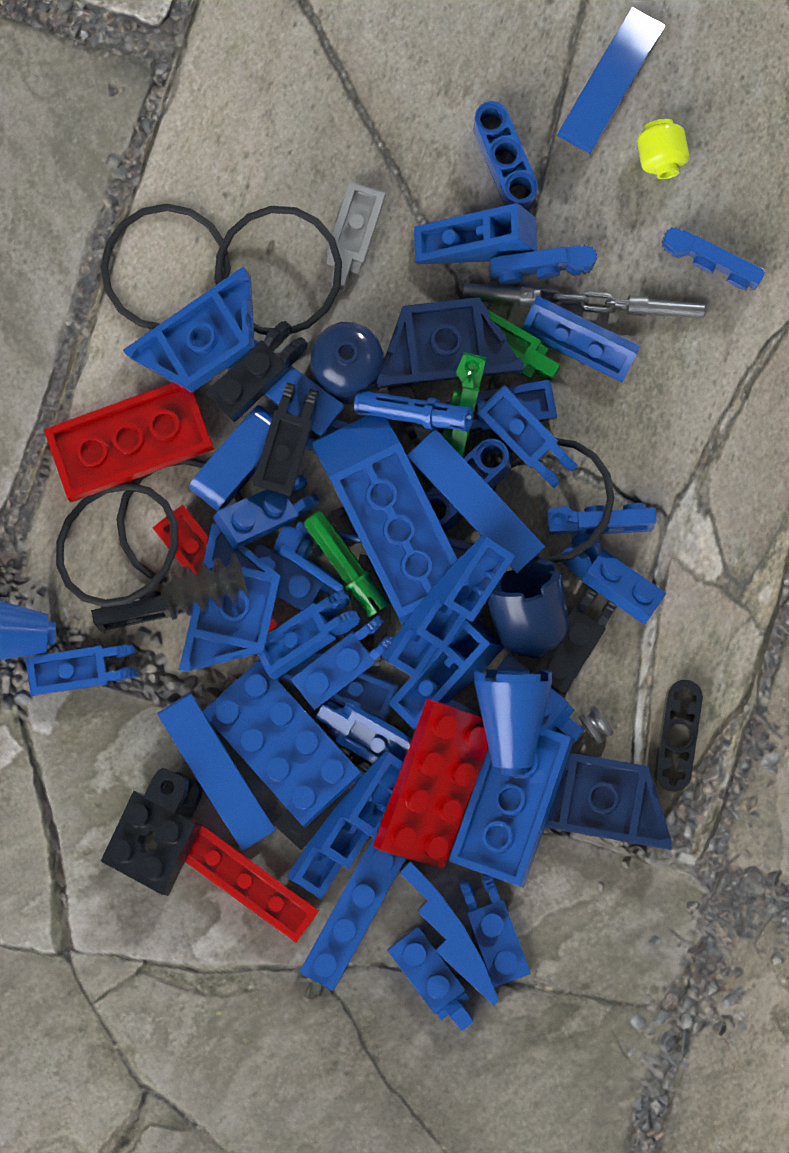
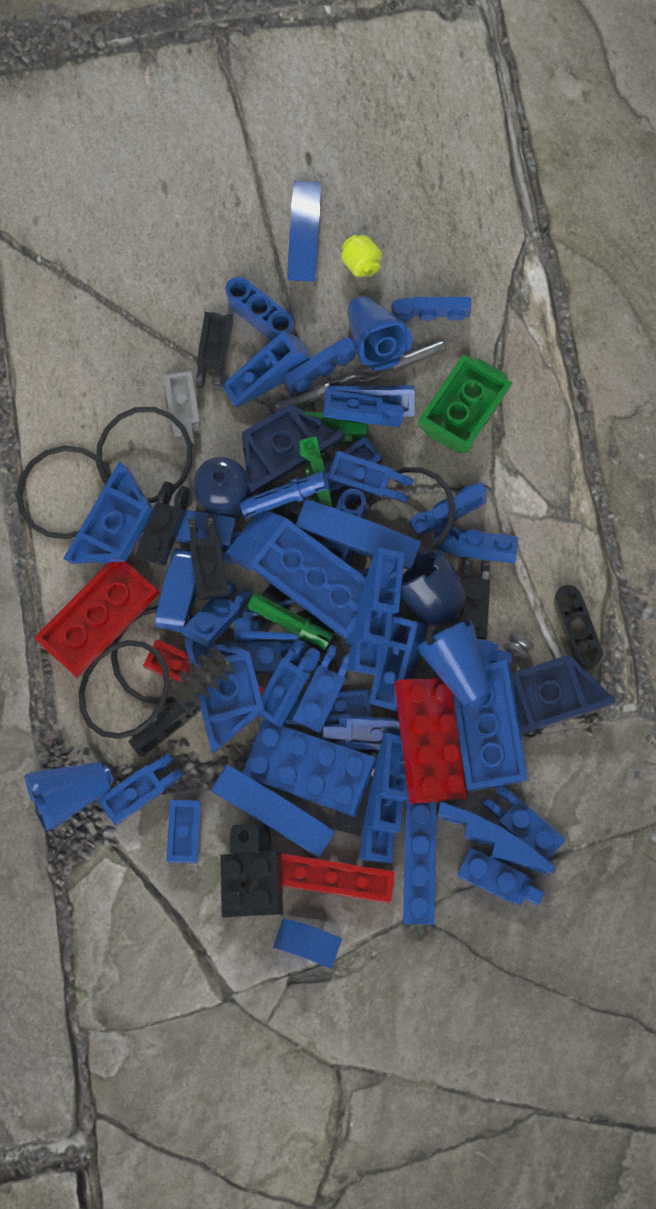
camera: 25 degrees left, 10 degrees down
(105, 743) = (184, 831): none -> blue plate
(181, 938) = (307, 942): none -> blue slope
(427, 175) = (214, 347): none -> black hinge
(560, 345) = (361, 409): none -> blue hinge
(628, 259) = (377, 334): none -> blue cone
(690, 398) = (464, 404): none -> green slope

